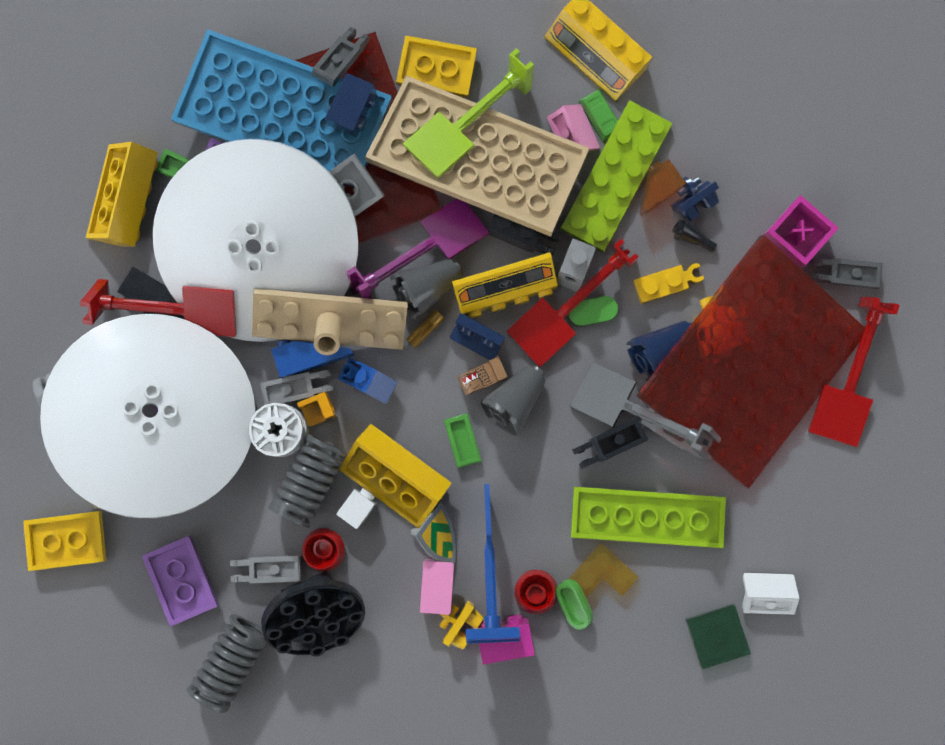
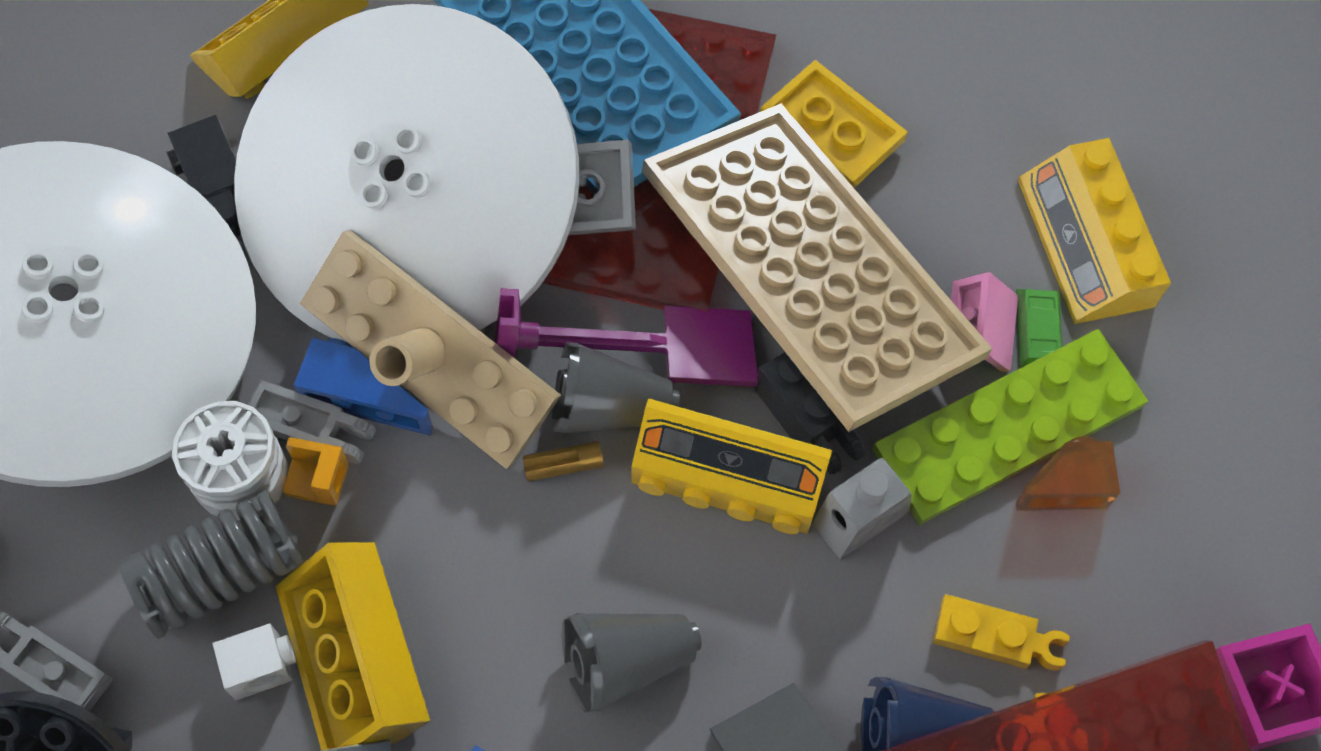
camera: 25 degrees right, 20 degrees down
(202, 306) = (264, 216): red piece -> none
(323, 549) = (152, 694): red hat -> none
(340, 57) = (703, 25): dark grey hinge -> none
(351, 105) = (673, 85): dark blue brick -> none
(367, 380) = (420, 478): blue slope -> none
(442, 143) = (773, 209): lime piece -> none
(462, 440) = (498, 669): bright green tile -> none
(477, 337) = (634, 520): dark blue bracket -> none
(482, 376) = (599, 587): medium nougat leg -> none
(543, 329) = (747, 580): red piece -> none
(593, 311) = (846, 602): bright green tile -> none
(689, 233) = (1081, 579): black cone -> none
(703, 193) = (1144, 535): dark blue hips -> none

